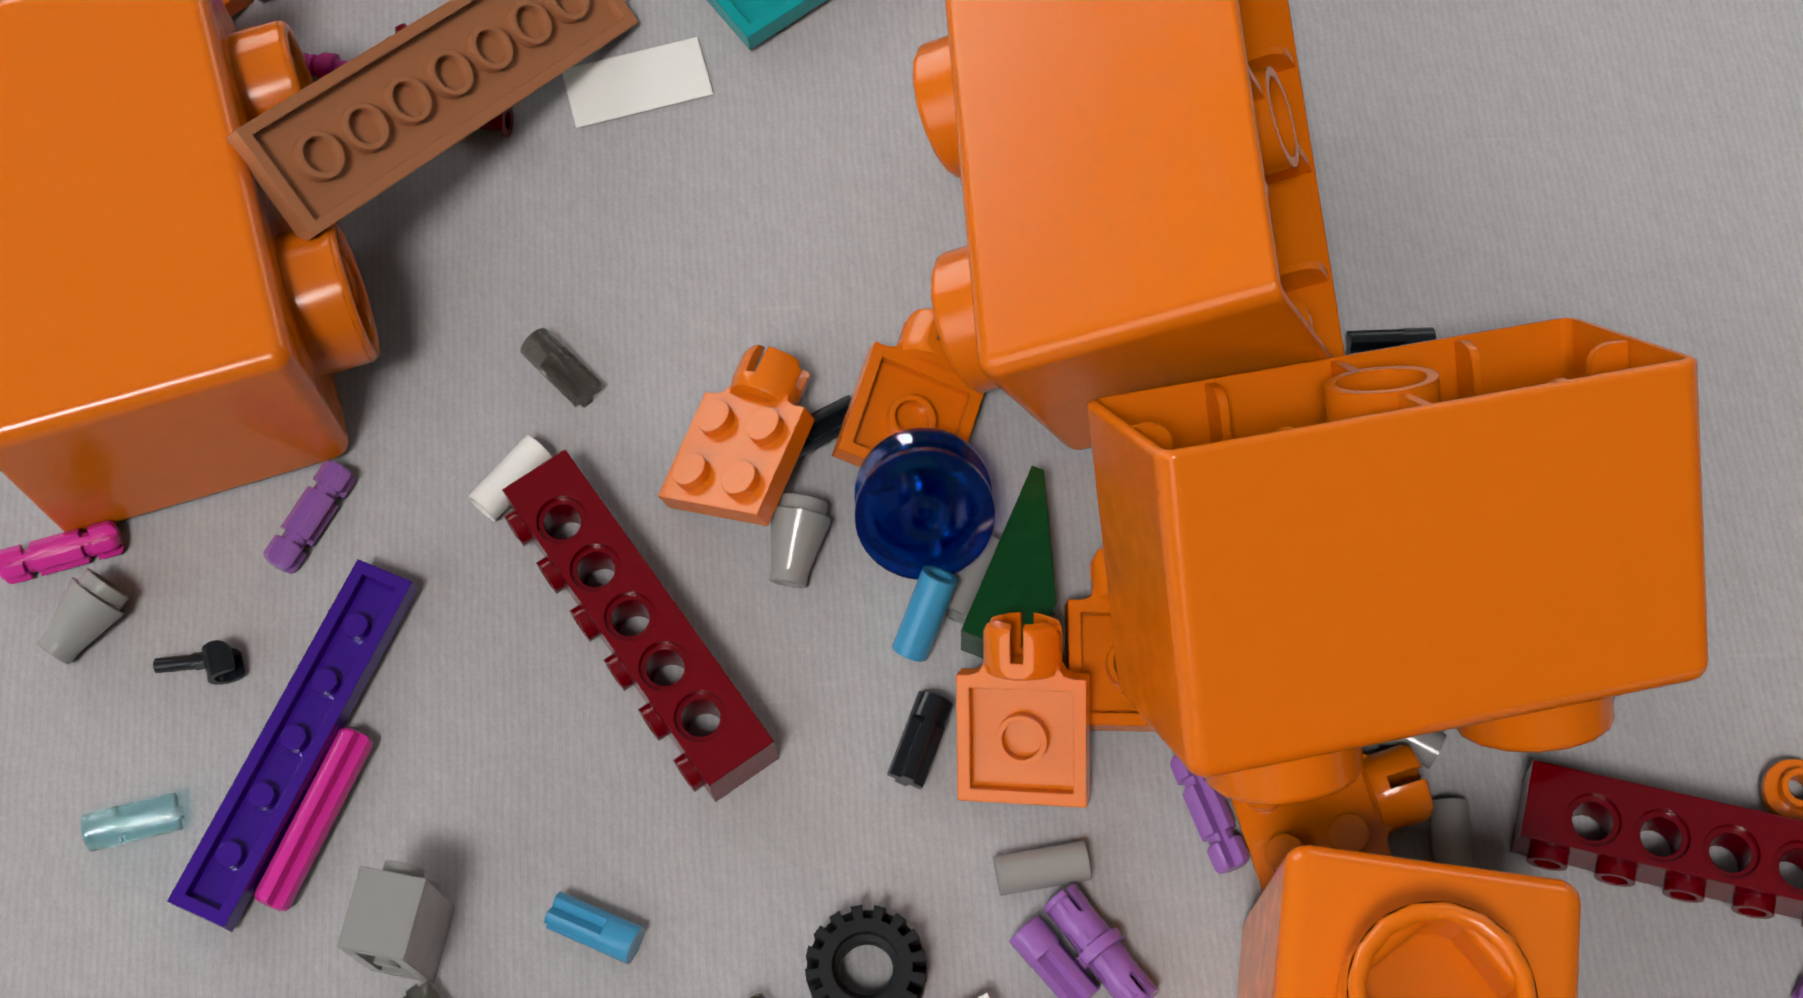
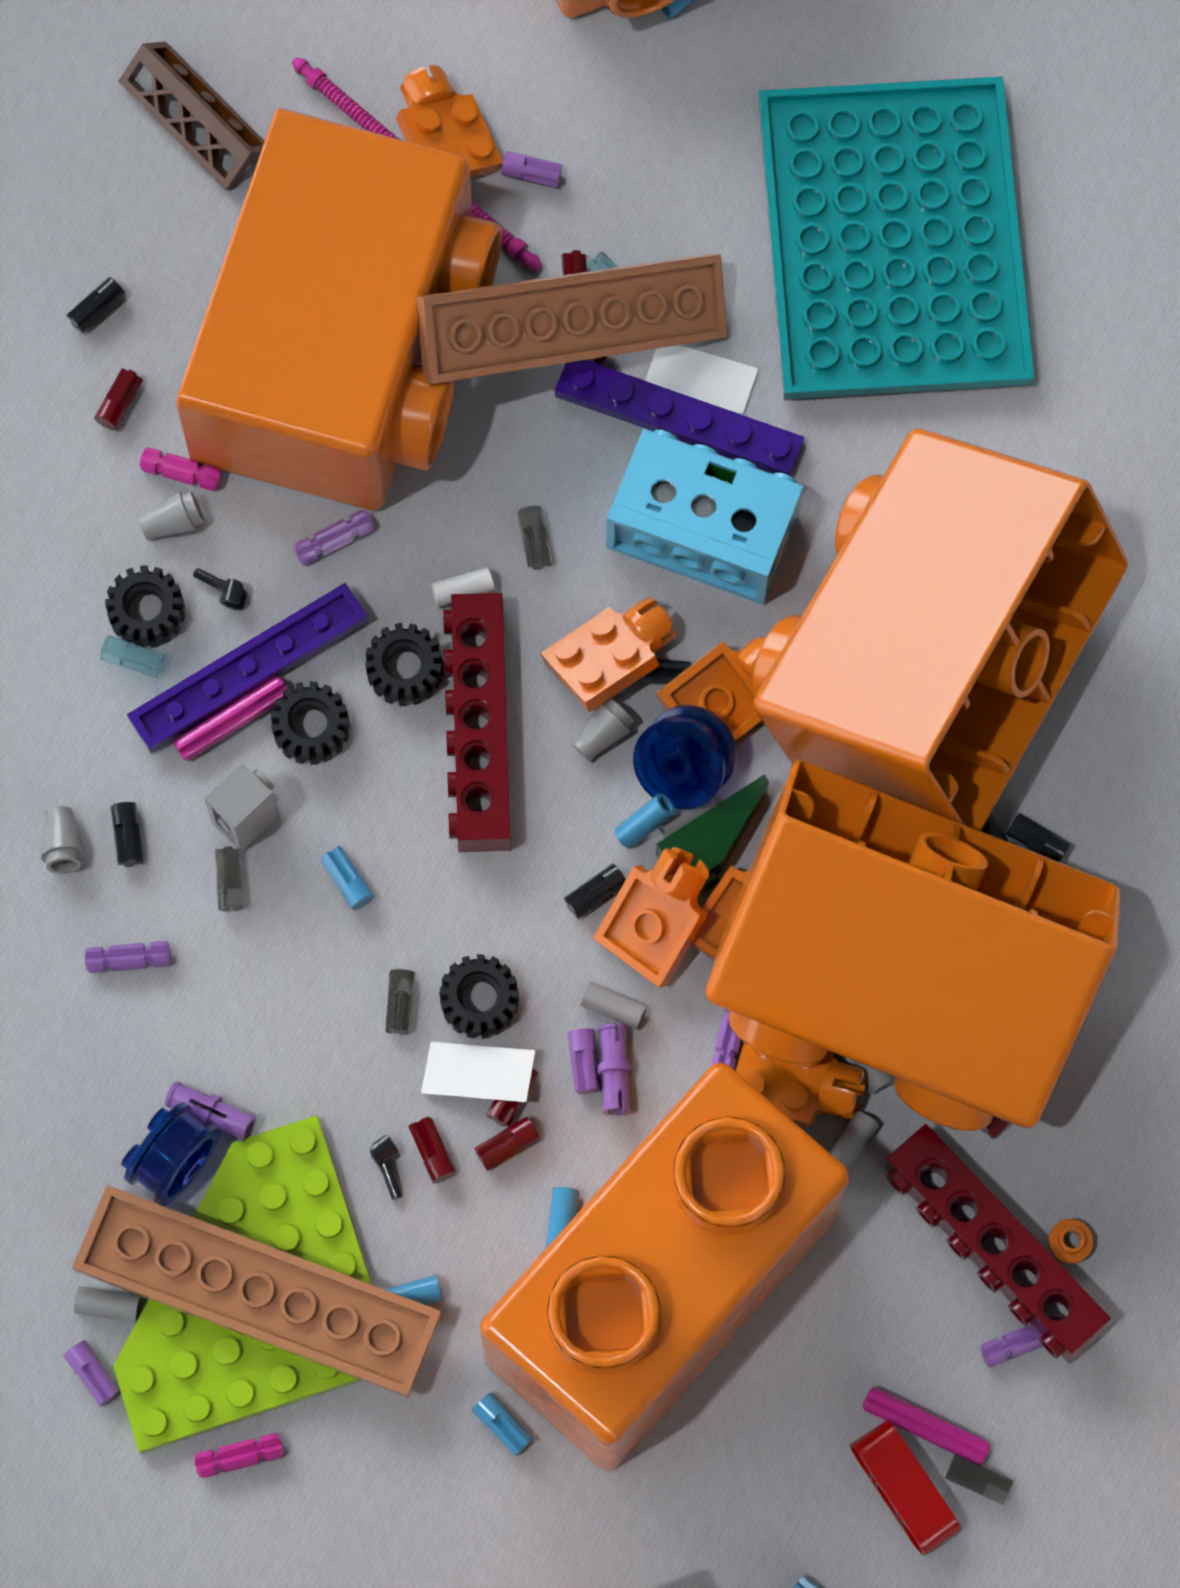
camera: 30 degrees right, 5 degrees up
(88, 723) = (140, 583): none -> black tyre
(394, 734) = (303, 699): none -> black tyre
(480, 582) = (404, 640): none -> black tyre
(640, 137) = (679, 414): none -> dark purple plate
(751, 216) = (703, 515): none -> medium azure piece

